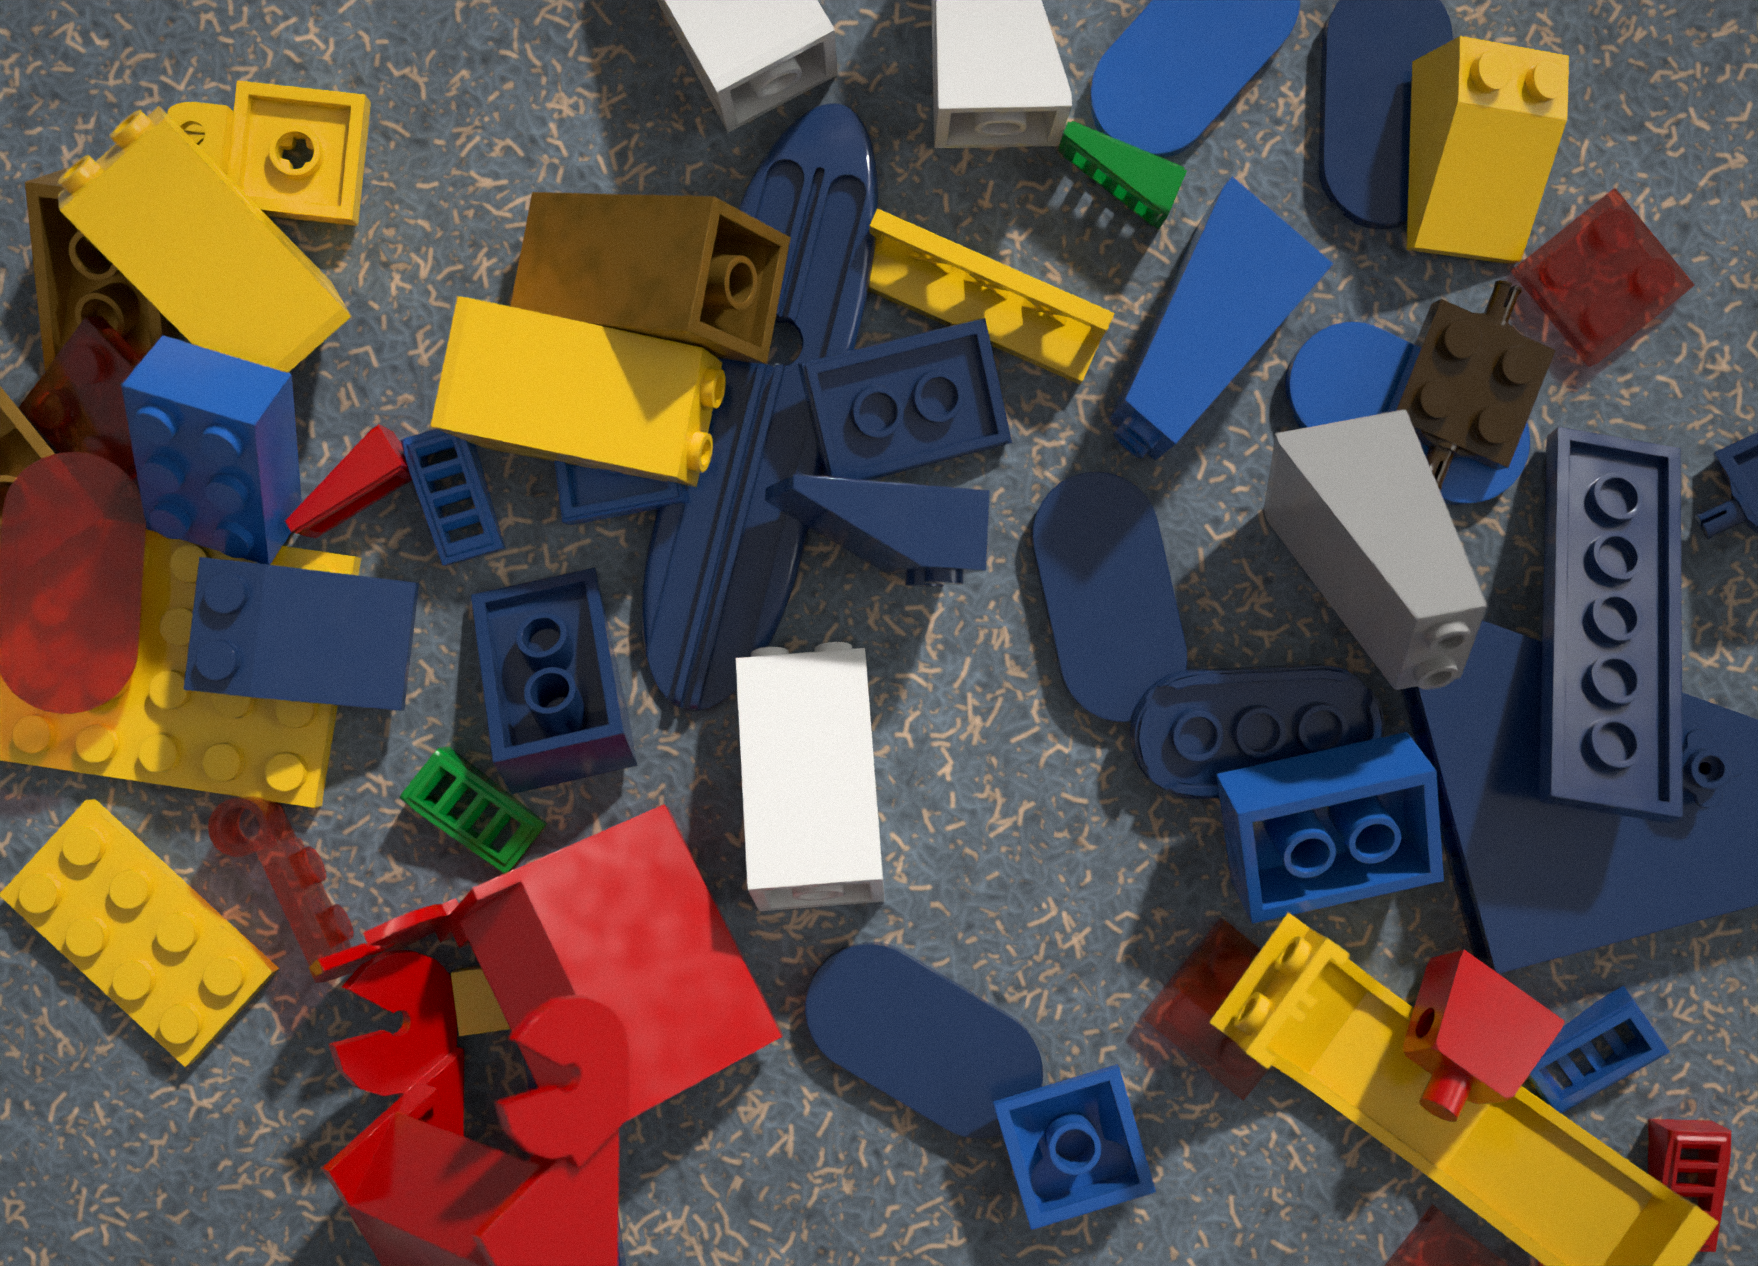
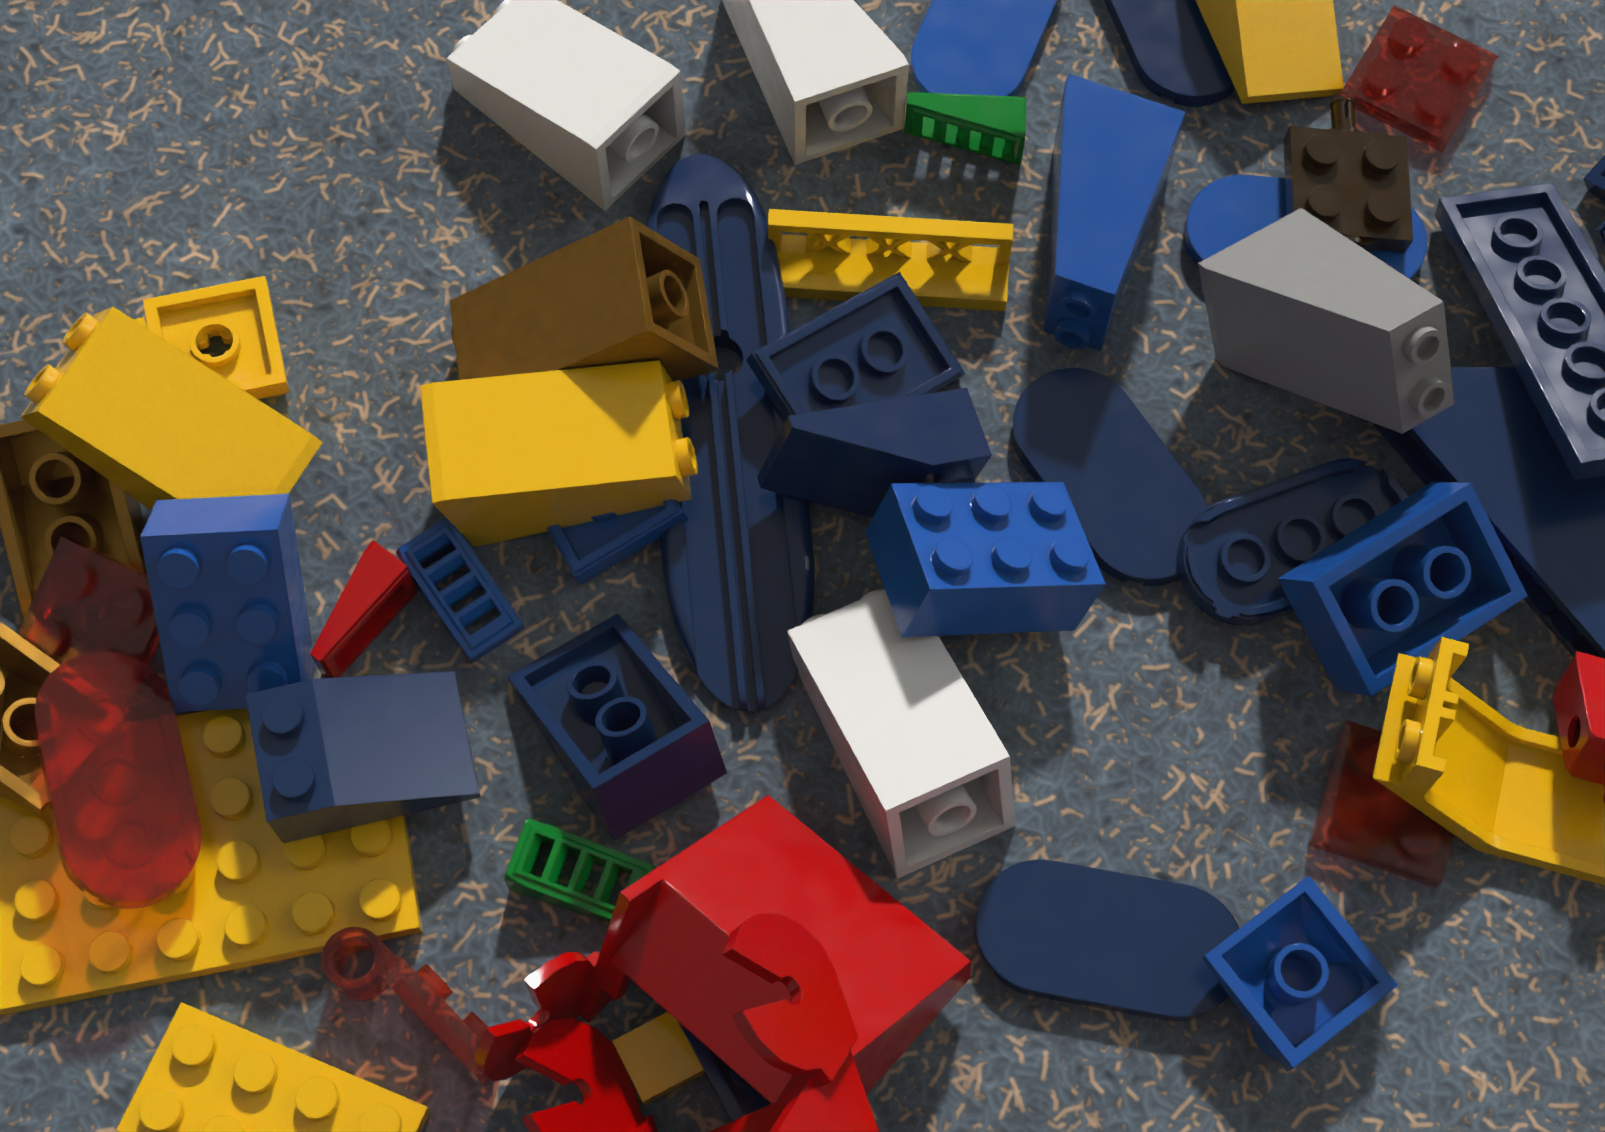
camera: 20 degrees left, 20 degrees down
(943, 659) = (983, 558): none -> blue brick

